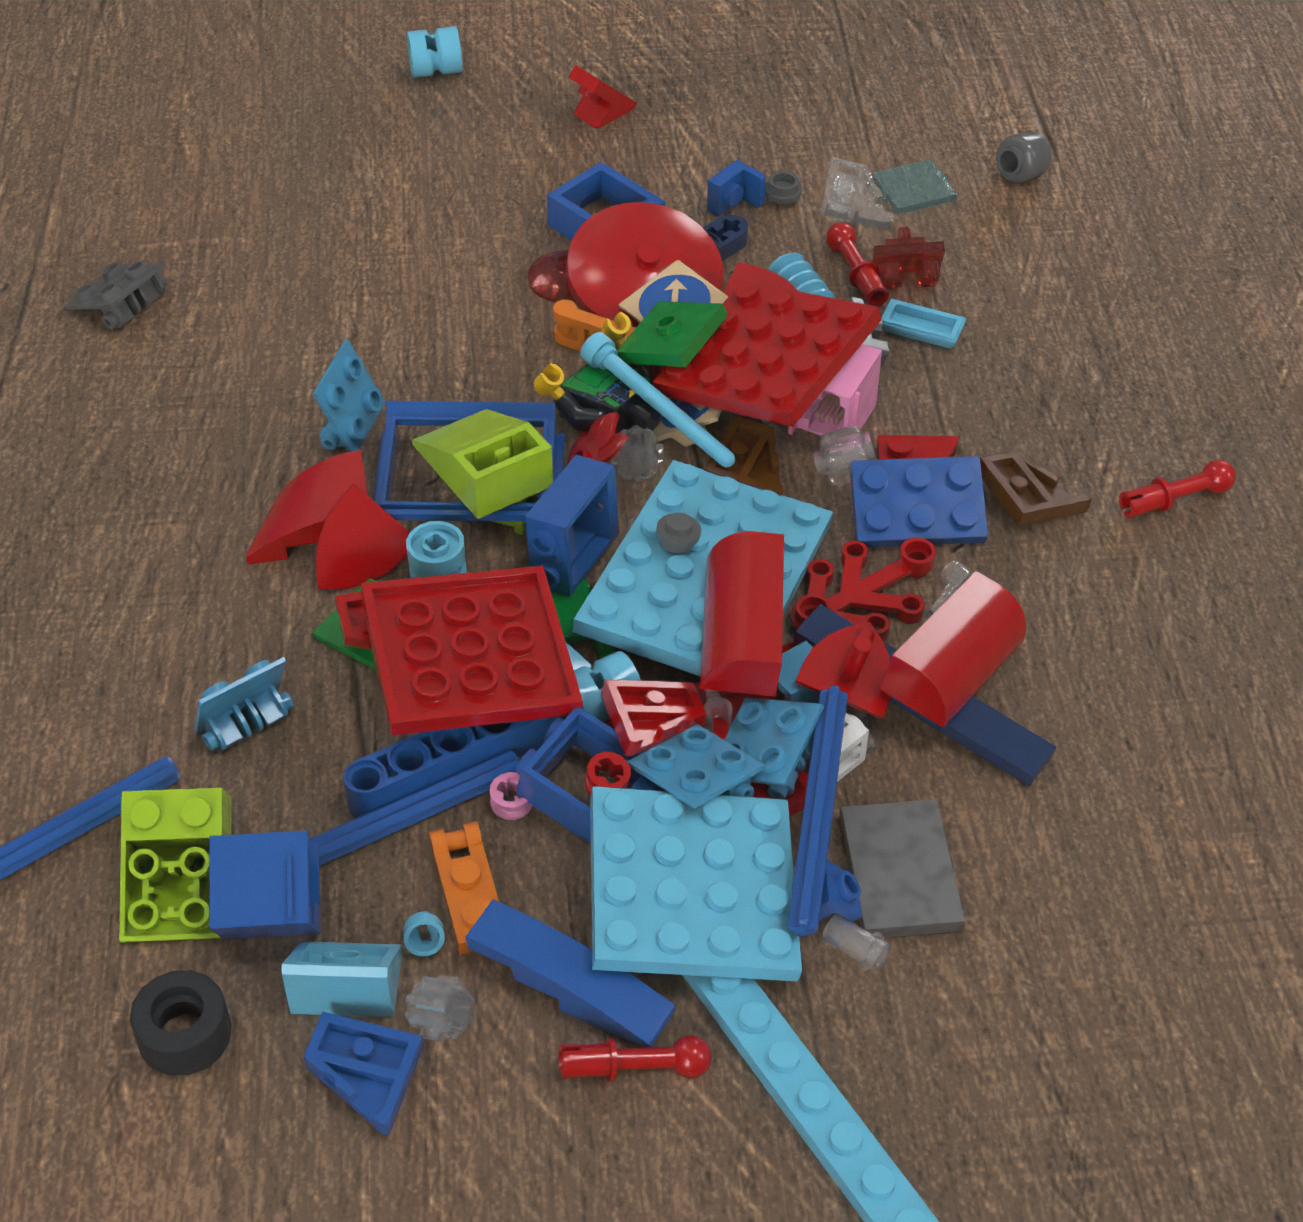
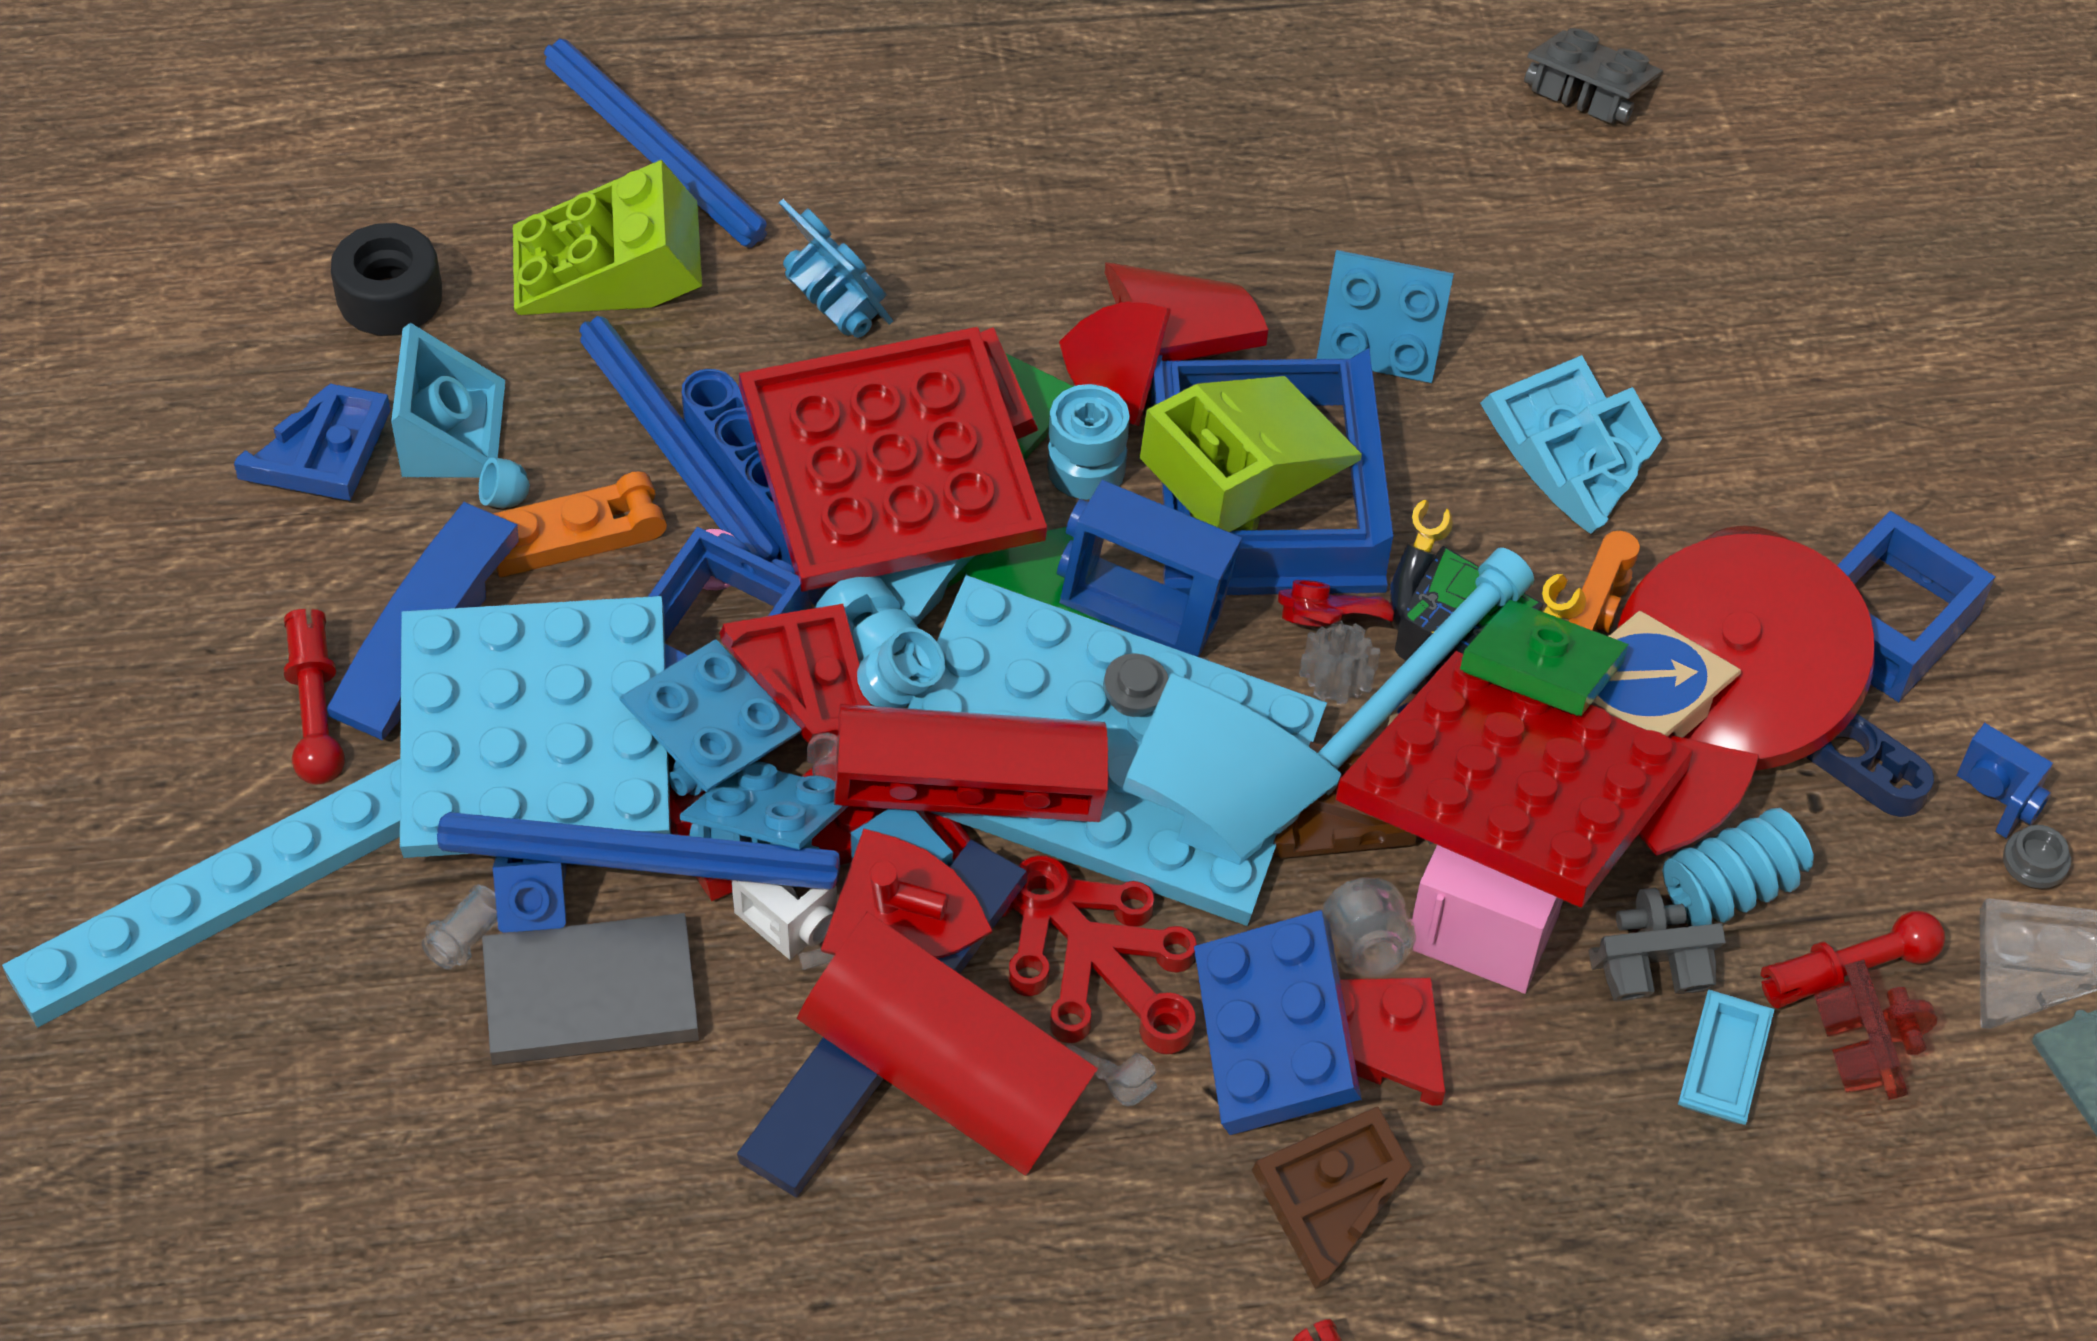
camera: 85 degrees right, 5 degrees up
(264, 885) = (541, 312): blue piece -> none
(439, 1008) = (382, 497): clear gear -> none
(453, 333) = (1574, 438): none -> medium azure slope
(614, 765) = (689, 600): red bush -> none
(662, 652) = (901, 668): none -> medium azure wheel
(749, 493) = (1224, 770): none -> medium azure slope

